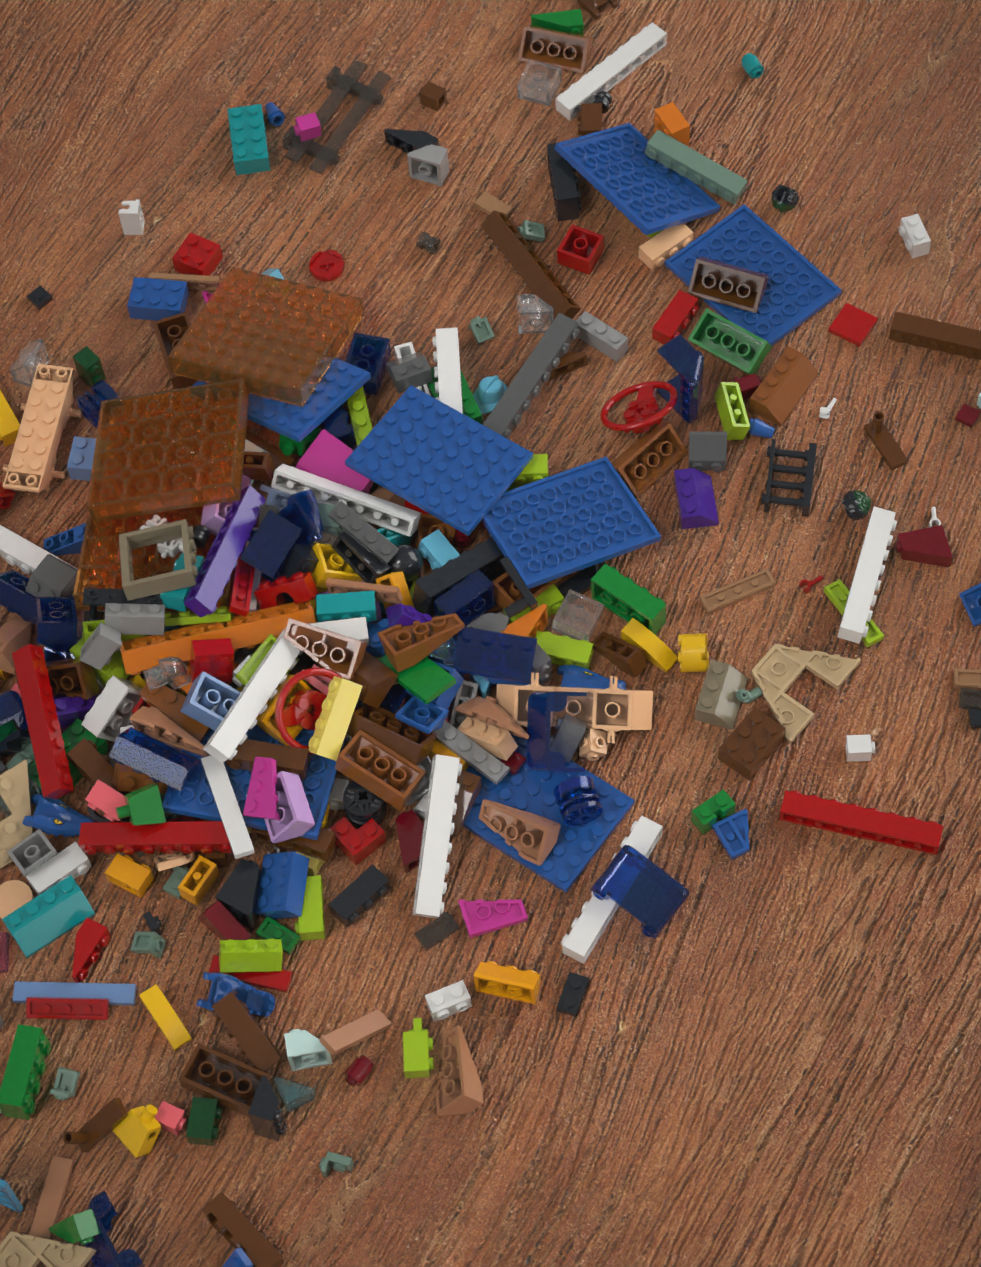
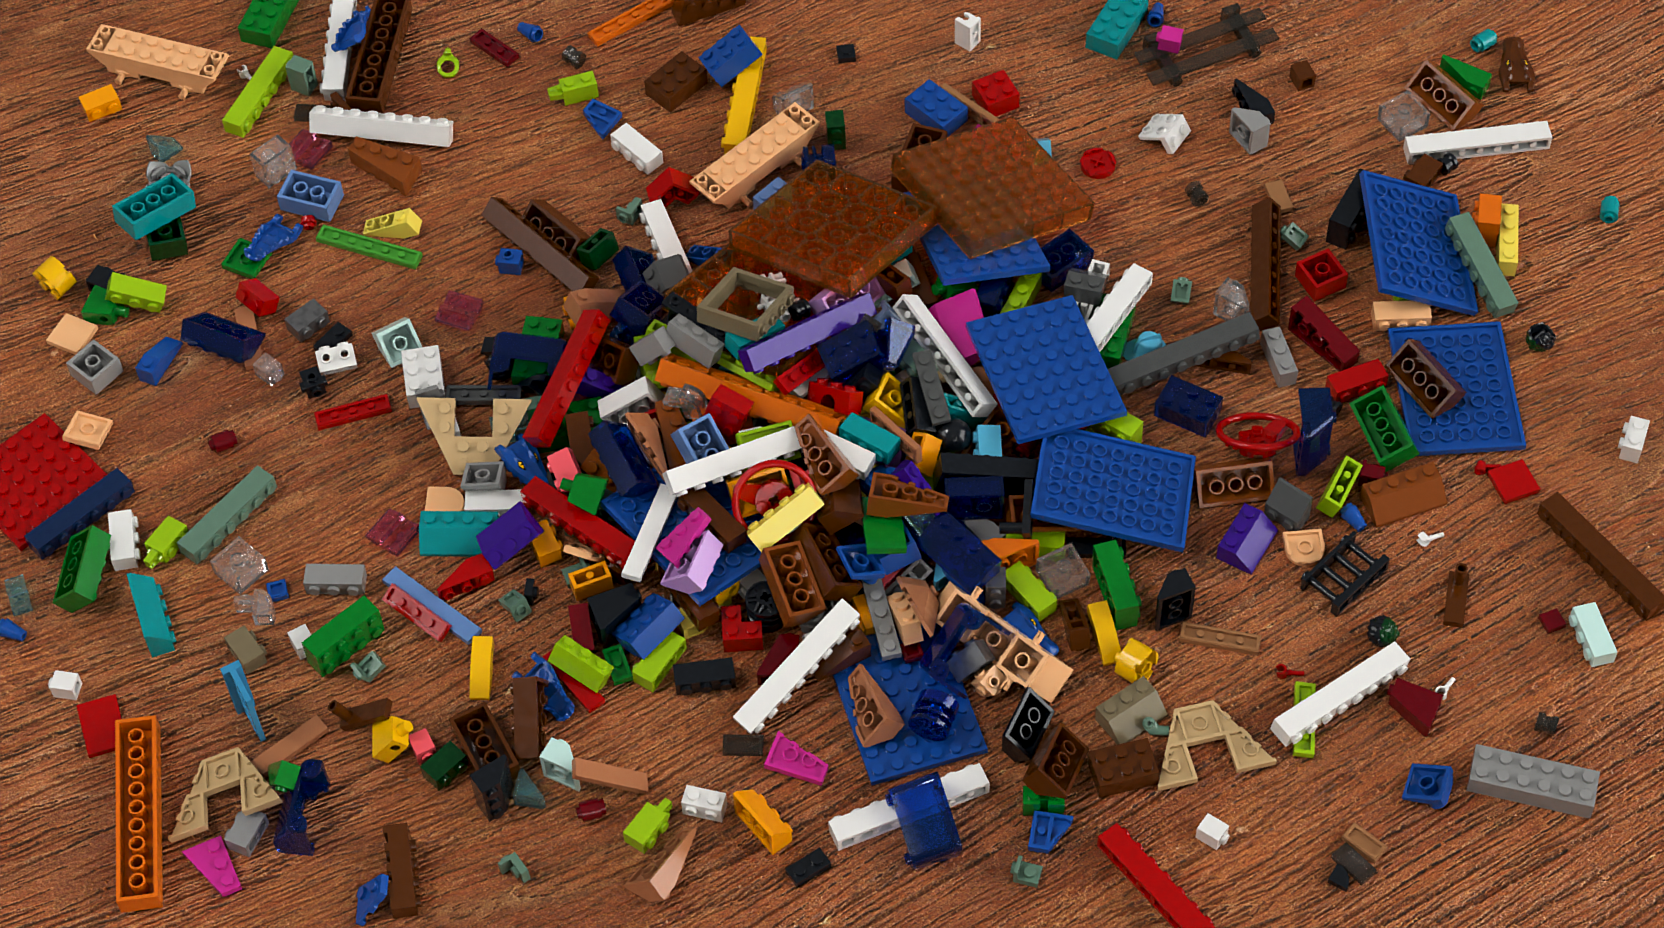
camera: 35 degrees right, 5 degrees down
(99, 888) = (508, 535): none -> dark purple slope
(360, 203) = (1168, 128): none -> white bracket
(563, 420) = (1188, 406): none -> clear blue brick
(621, 298) = (1322, 335): none -> dark red wedge
(655, 761) = (1026, 726): none -> black slope
(686, 581) = (1175, 599): none -> black slope
(700, 137) = (1508, 240): none -> light yellow brick
(702, 775) = (1056, 763): none -> reddish brown slope
(741, 476) = (1304, 546): none -> light nougat tile
(745, 878) = (1026, 873): none -> sand green bracket
(821, 327) = (1481, 467): none -> red hand

